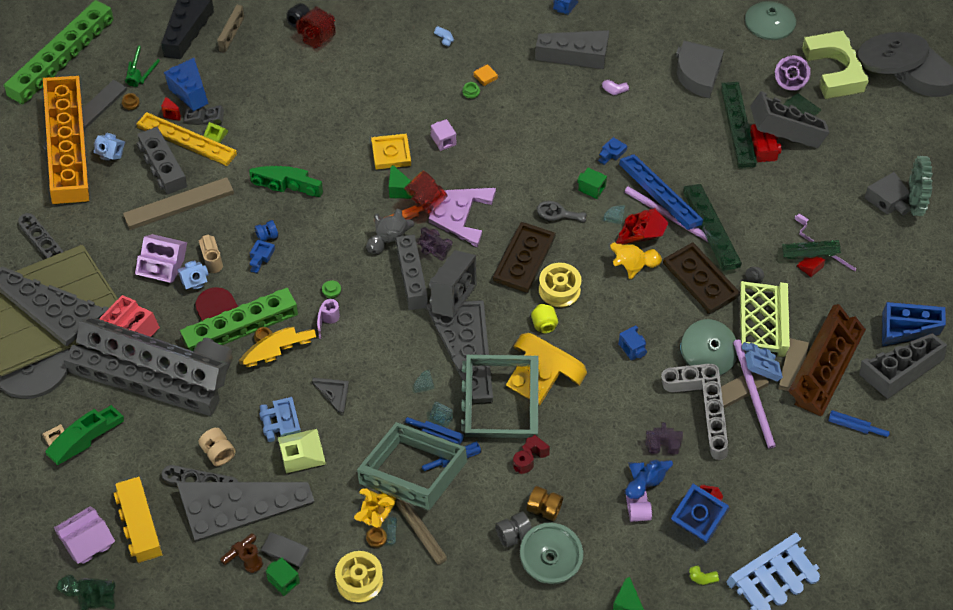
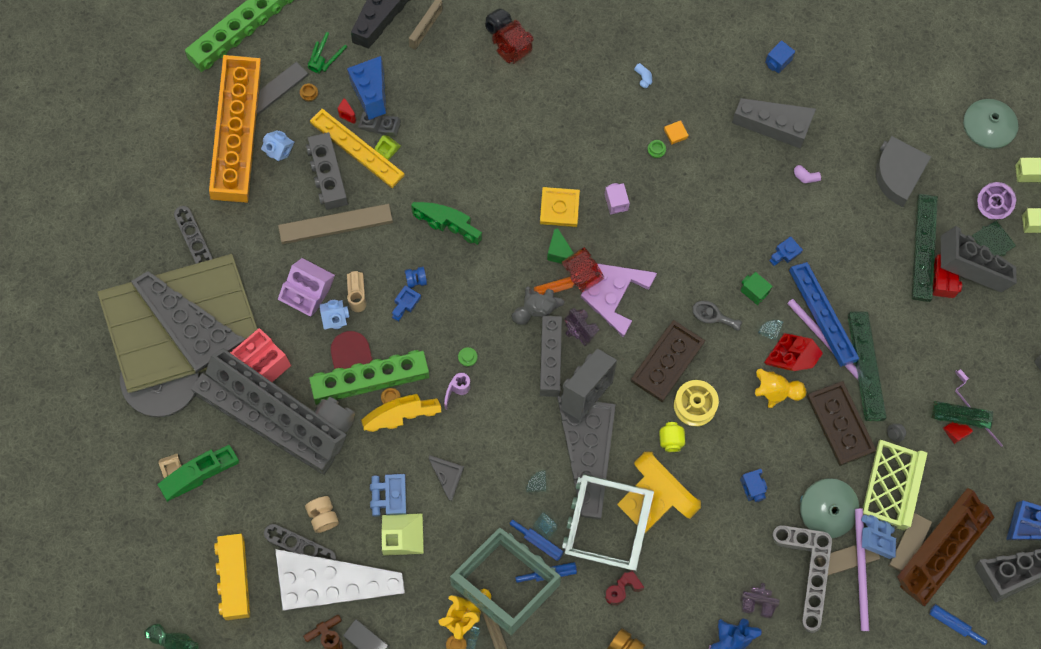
camera: 10 degrees right, 15 degrees up
(84, 535) = (179, 582): lavender piece -> none

